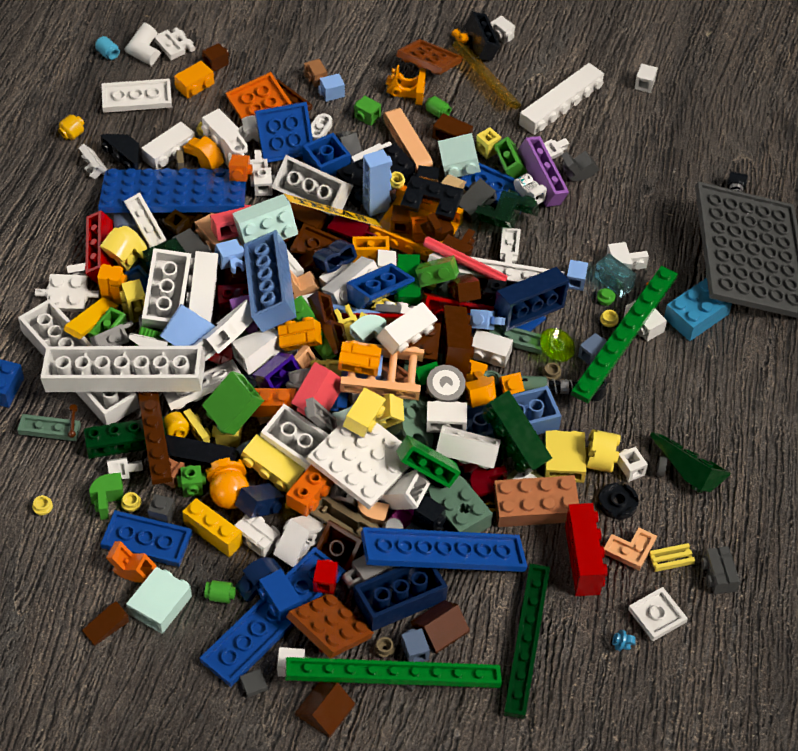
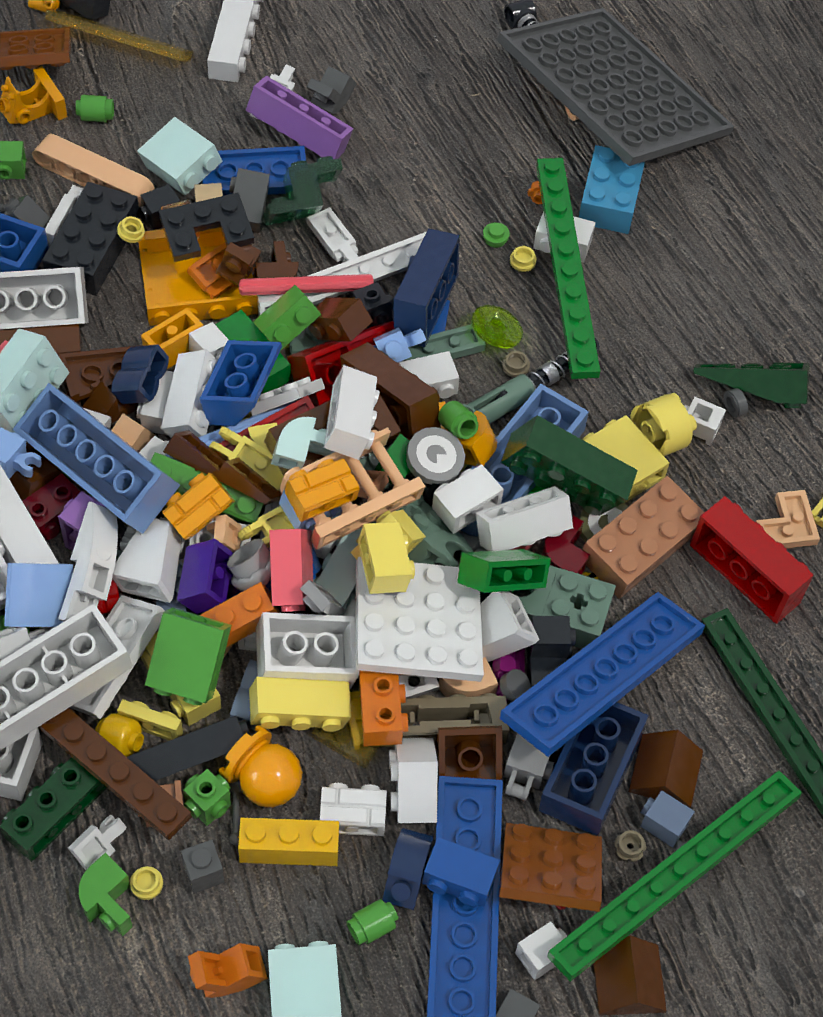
camera: 40 degrees left, 5 degrees up
(42, 505) = (26, 975): light yellow plate -> none
(155, 538) = (212, 918): blue plate -> none
(260, 500) = (325, 763): dark blue brick -> none
(325, 576) = (493, 806): red brick -> none
(329, 209) = (87, 315): yellow sticker -> none
(348, 228) = (121, 328): dark red brick -> none
(376, 182) = (117, 245): light blue brick -> none
(400, 220) = (175, 278): reddish brown brick -> none
(450, 127) = (136, 127): reddish brown brick -> none
(474, 372) = (458, 420): none -> bright green brick
(485, 142) = (200, 117): light yellow brick -> none
(509, 158) = (243, 124): bright green brick -> none
(512, 382) = (500, 407): light orange brick -> none
(527, 186) = (297, 148): white leg -> none
(577, 274) = (443, 219): light blue brick -> none
(590, 348) = (541, 308): sand blue brick -> none
(613, 509) = (715, 487): black tile -> none
(615, 275) = (487, 201): clear light blue brick -> none
(633, 261) = (479, 179): white brick -> none

